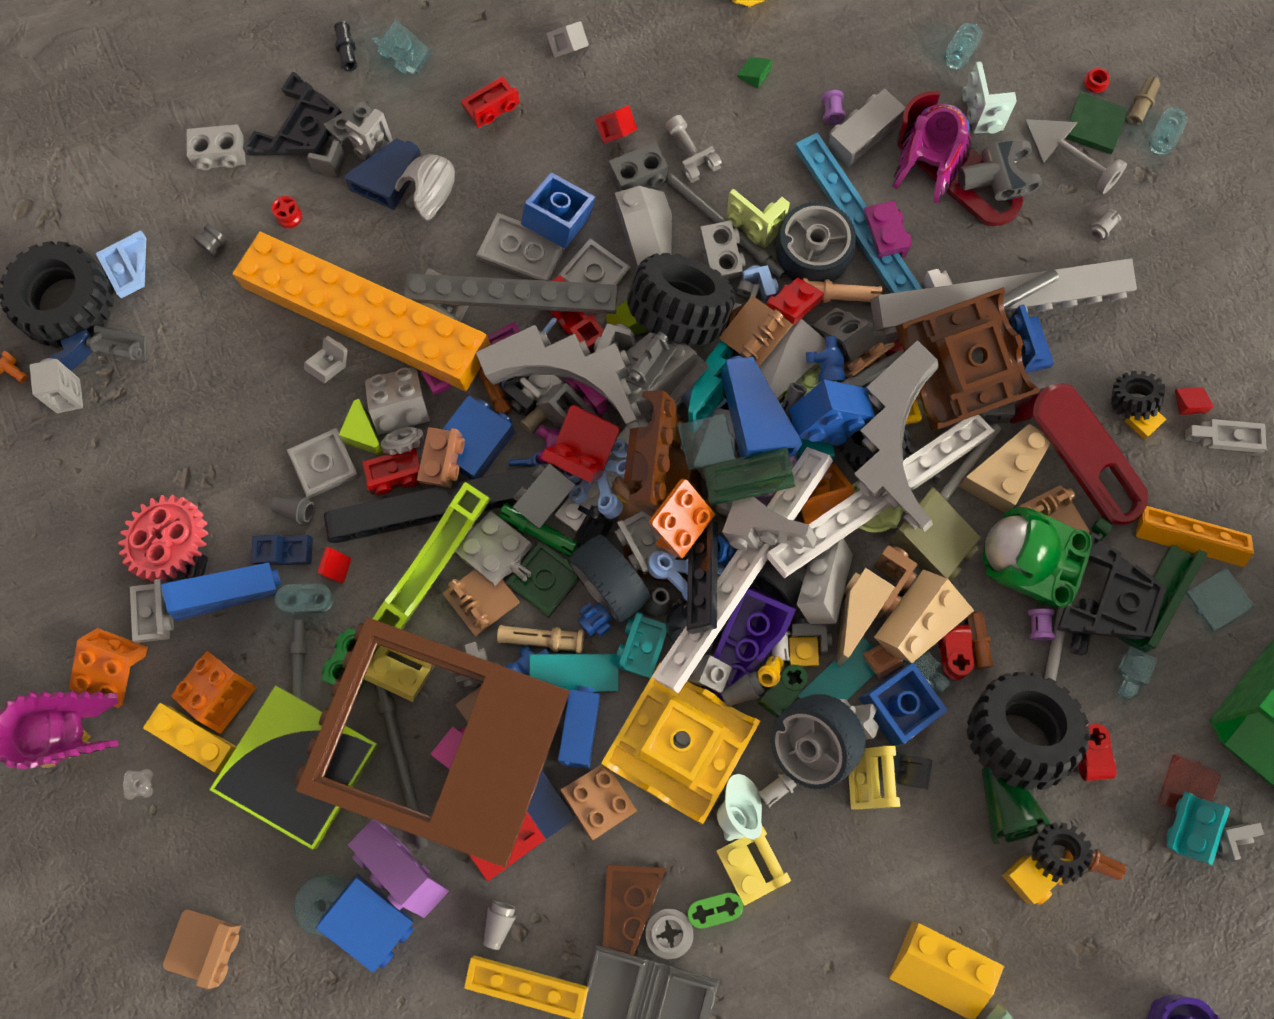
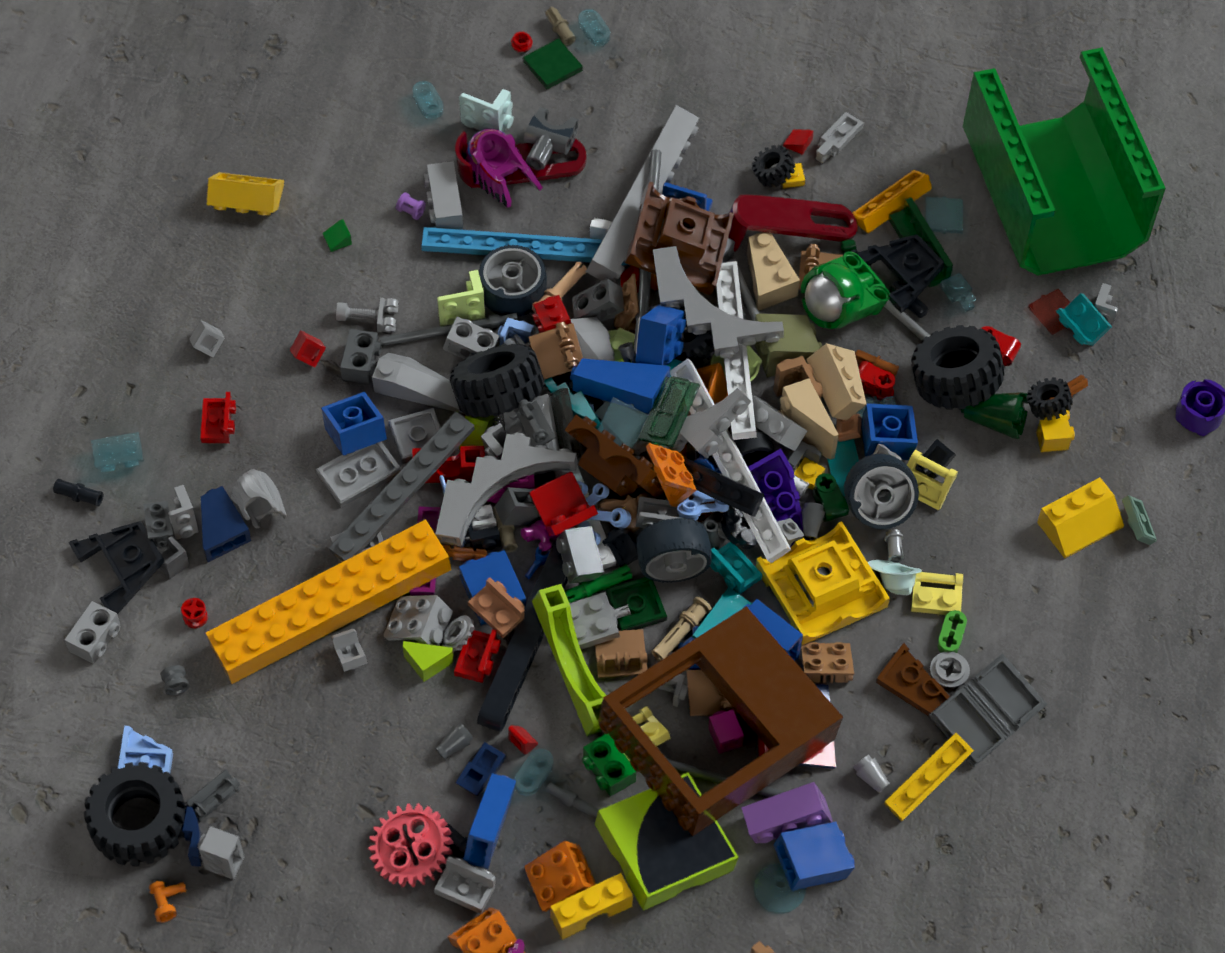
camera: 60 degrees left, 15 degrees down
(322, 463) = (430, 704): light grey tile -> none
(594, 619) = (692, 585): blue gear -> none
(770, 673) = (810, 492): yellow pin -> none
(830, 360) = (616, 320): blue piece -> none
(887, 229) = (536, 231): magenta bracket -> none
(1041, 624) = (890, 321): medium lavender bush -> none
(1051, 134) = (541, 94): light grey piece -> none
(1100, 230) = (636, 111): light grey pin -> none

